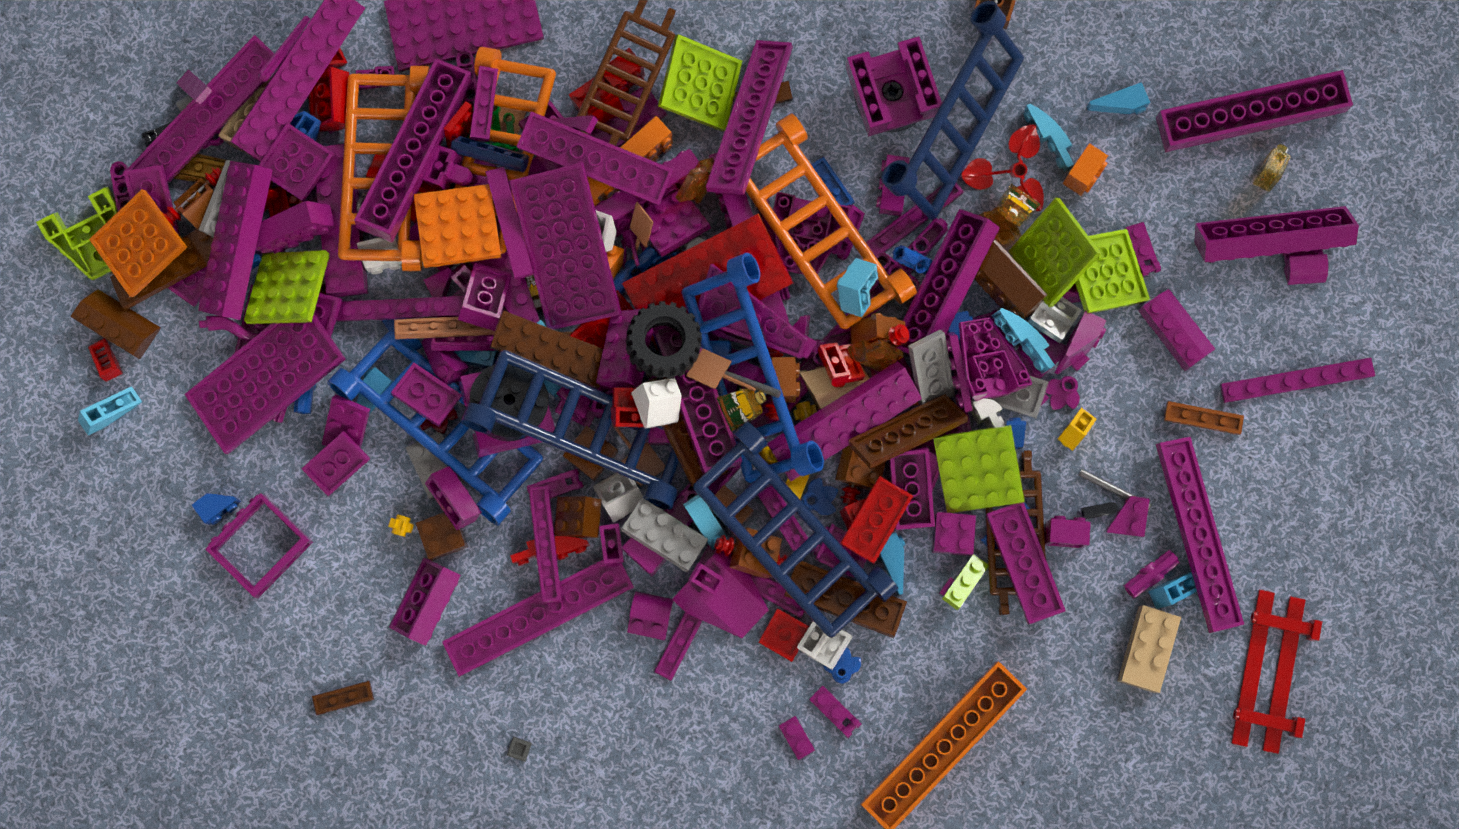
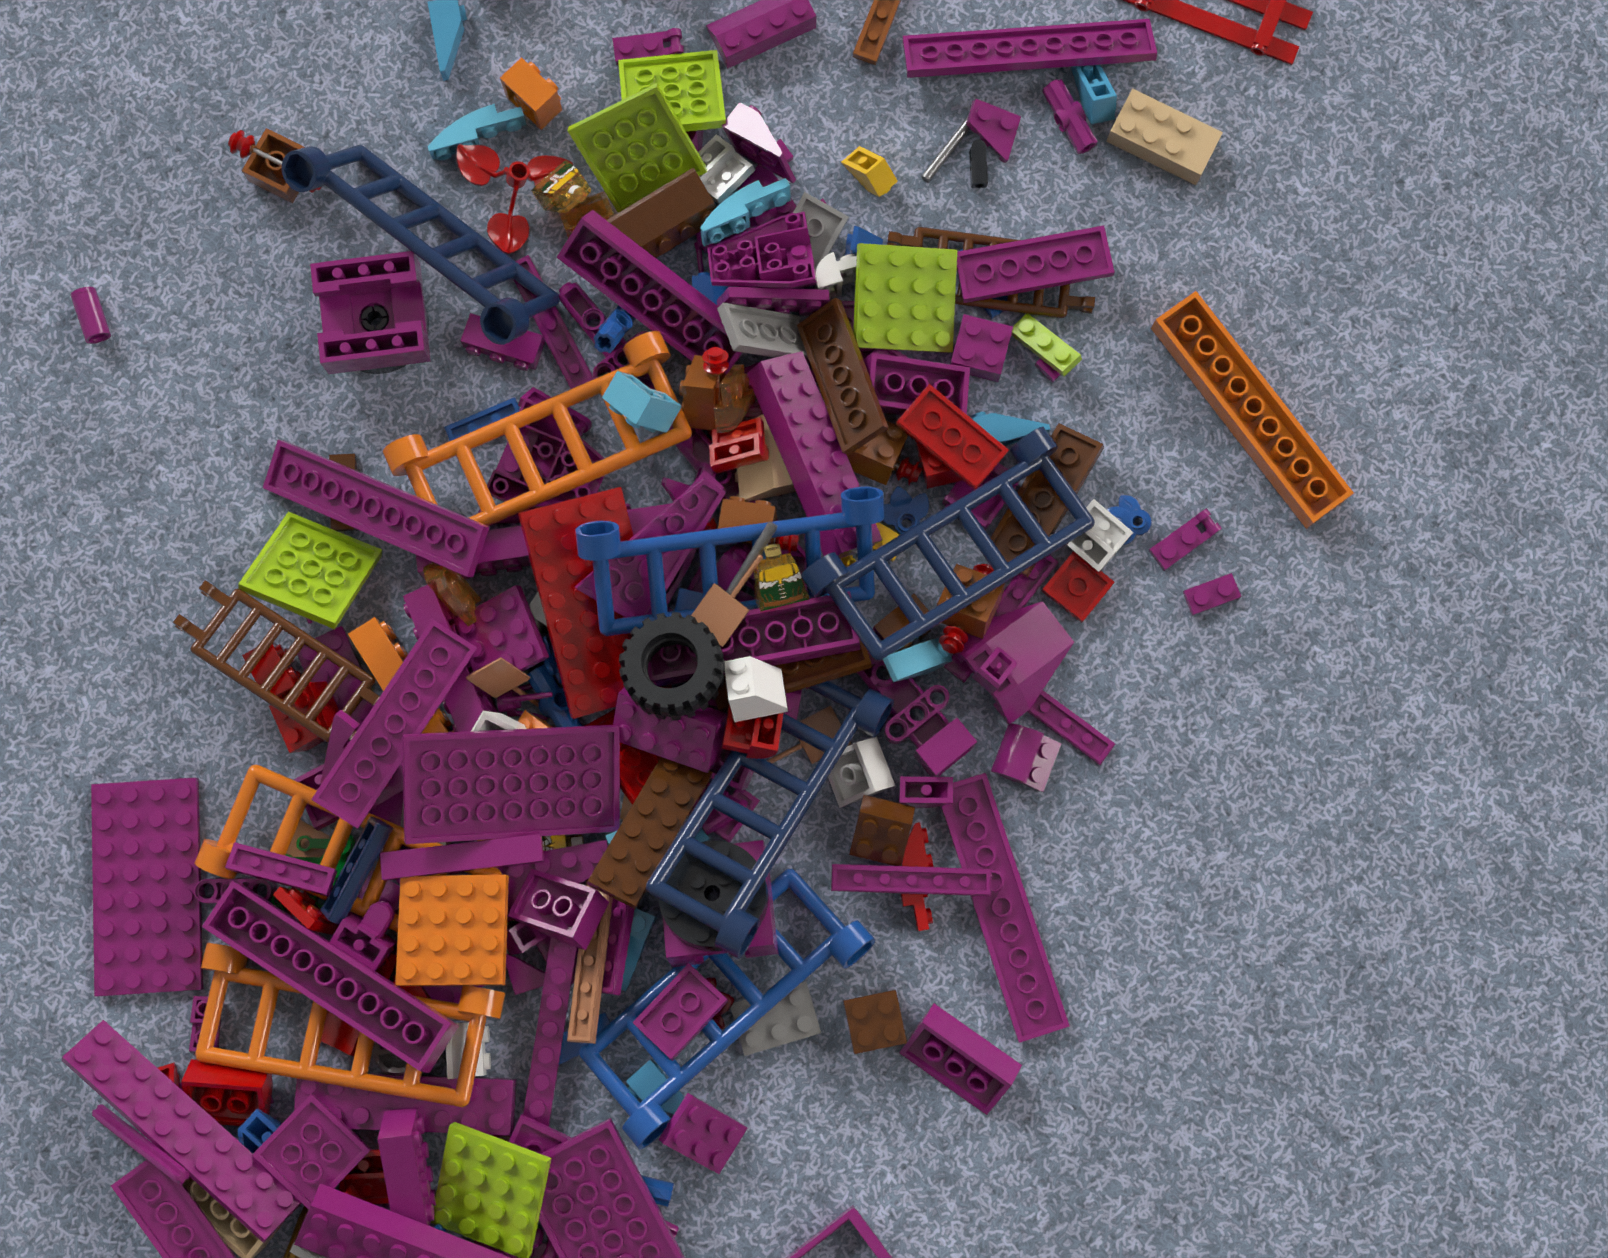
camera: 85 degrees left, 0 degrees up
(335, 463) = (752, 1155): magenta plate -> none
(343, 698) = (1073, 1191): reddish brown tile -> none
(400, 525) = (852, 1076): yellow gear -> none
(445, 364) = (640, 982): magenta slope -> none
(453, 497) = (829, 995): magenta brick -> none
(519, 749) = (1175, 959): dark grey tile -> none
(558, 485) = (830, 852): magenta plate -> none
(588, 468) = (779, 801): reddish brown brick -> none
(664, 535) = (928, 715): light grey plate -> none
(790, 529) = (915, 566): magenta plate -> none
(804, 410) = (789, 507): yellow gear -> none
(1060, 395) = (822, 182): magenta plate -> none
(1067, 533) = (1002, 205): magenta brick -> none

